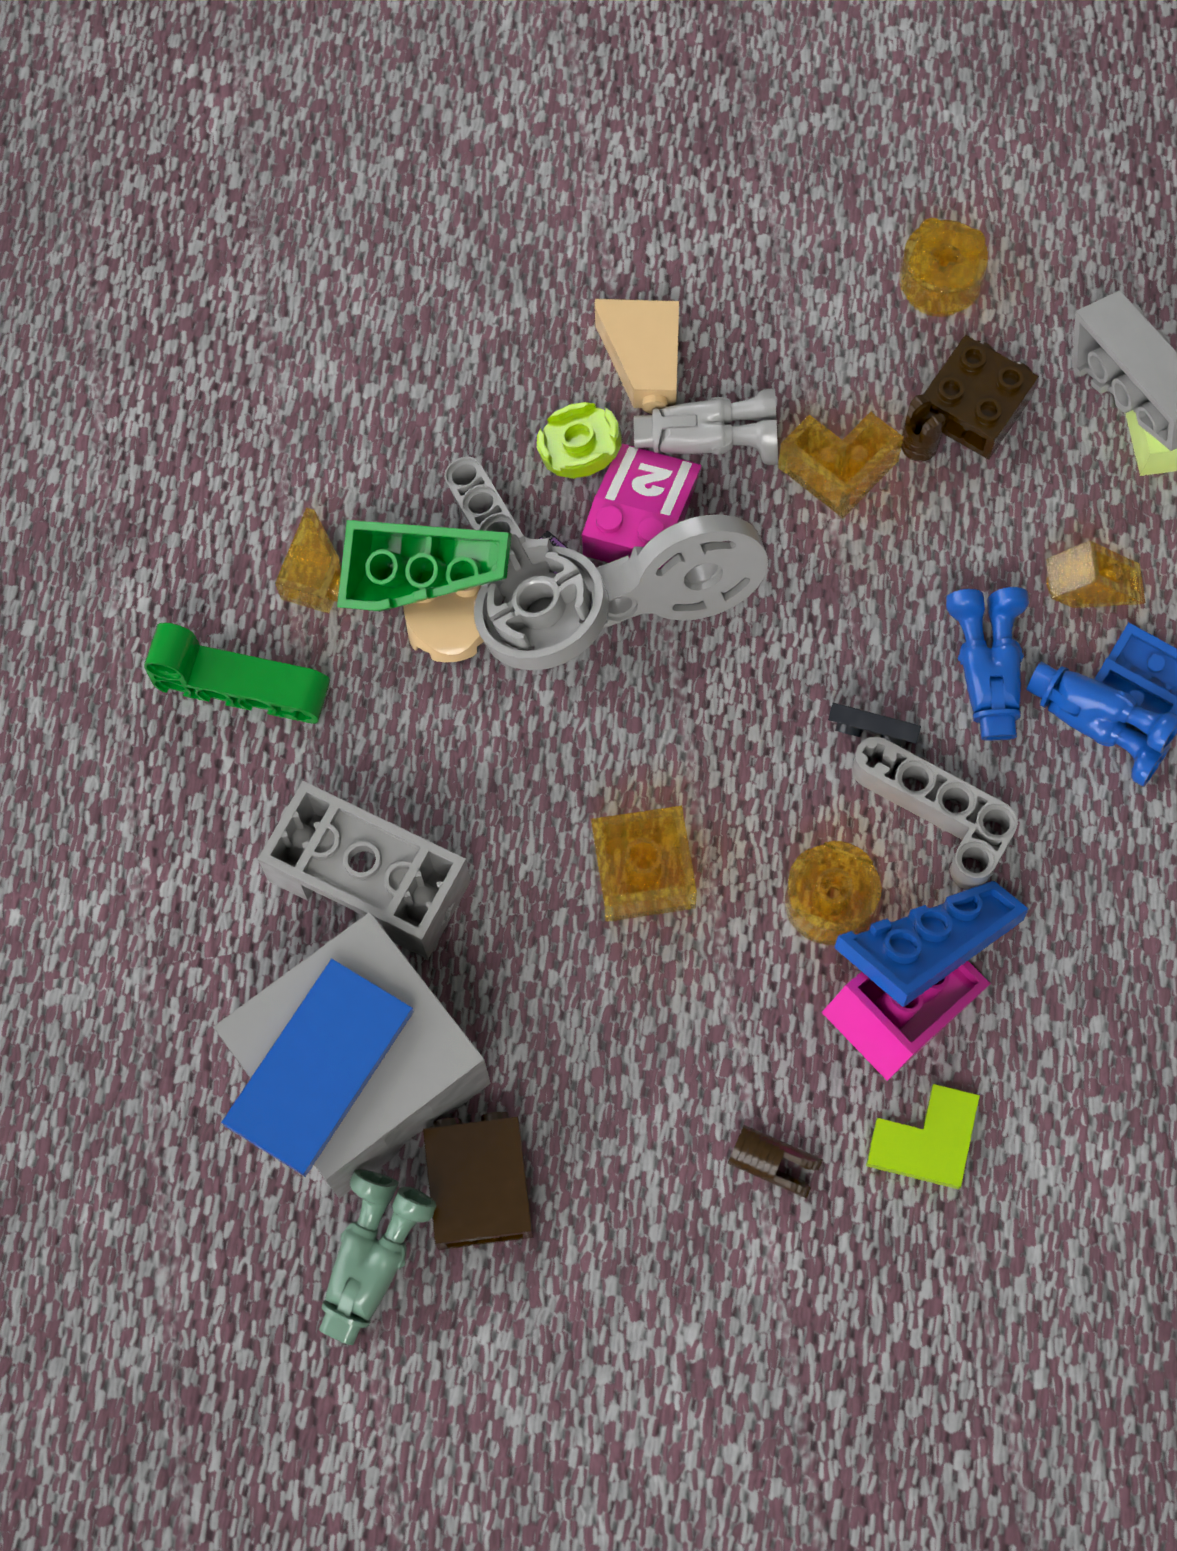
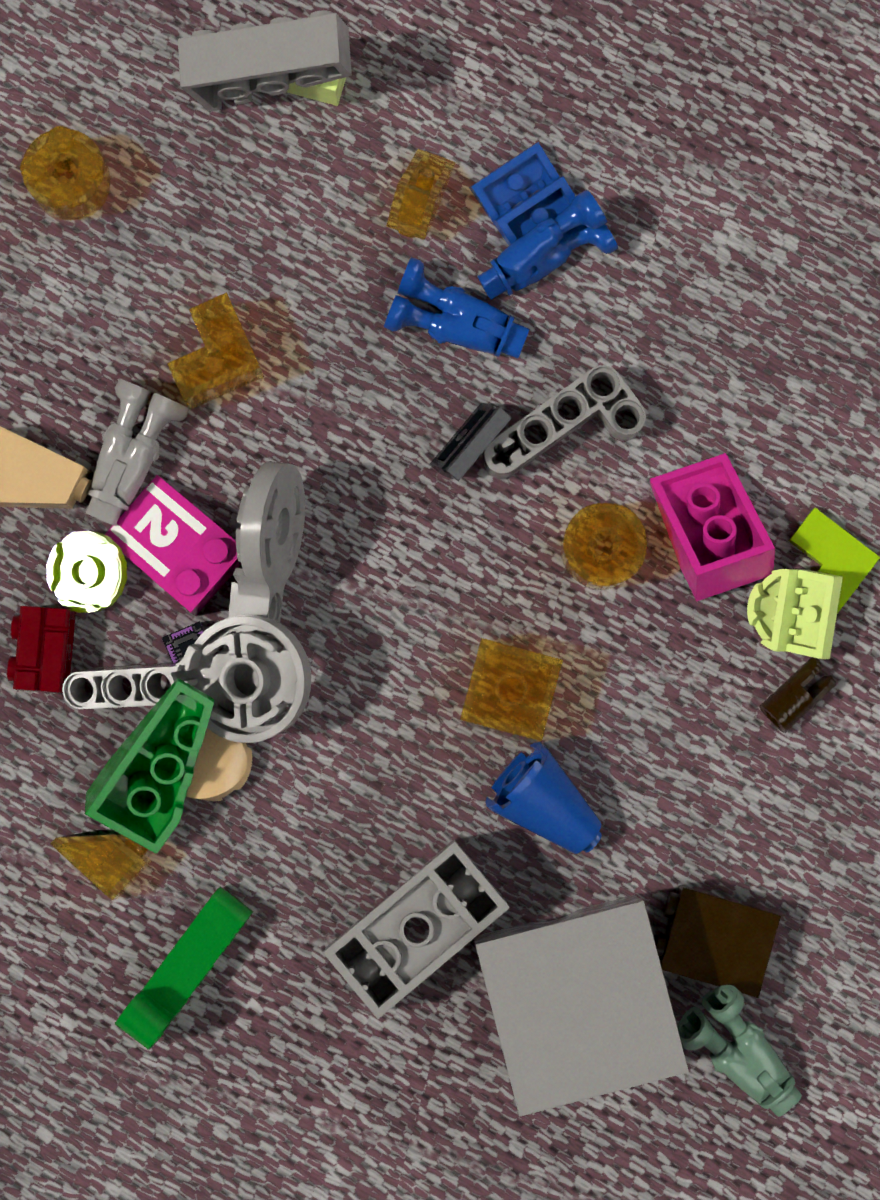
camera: 70 degrees left, 15 degrees up
(318, 1067) = (595, 1042): blue tile -> none
(489, 431) = (42, 649): none -> dark red brick
(545, 947) = (545, 801): none -> blue cone
(860, 1116) = (796, 611): none -> yellowish green slope
(922, 430) = (208, 268): dark brown hinge -> none
(931, 942) = (683, 492): blue wing -> none
(980, 395) = (207, 206): dark brown brick -> none

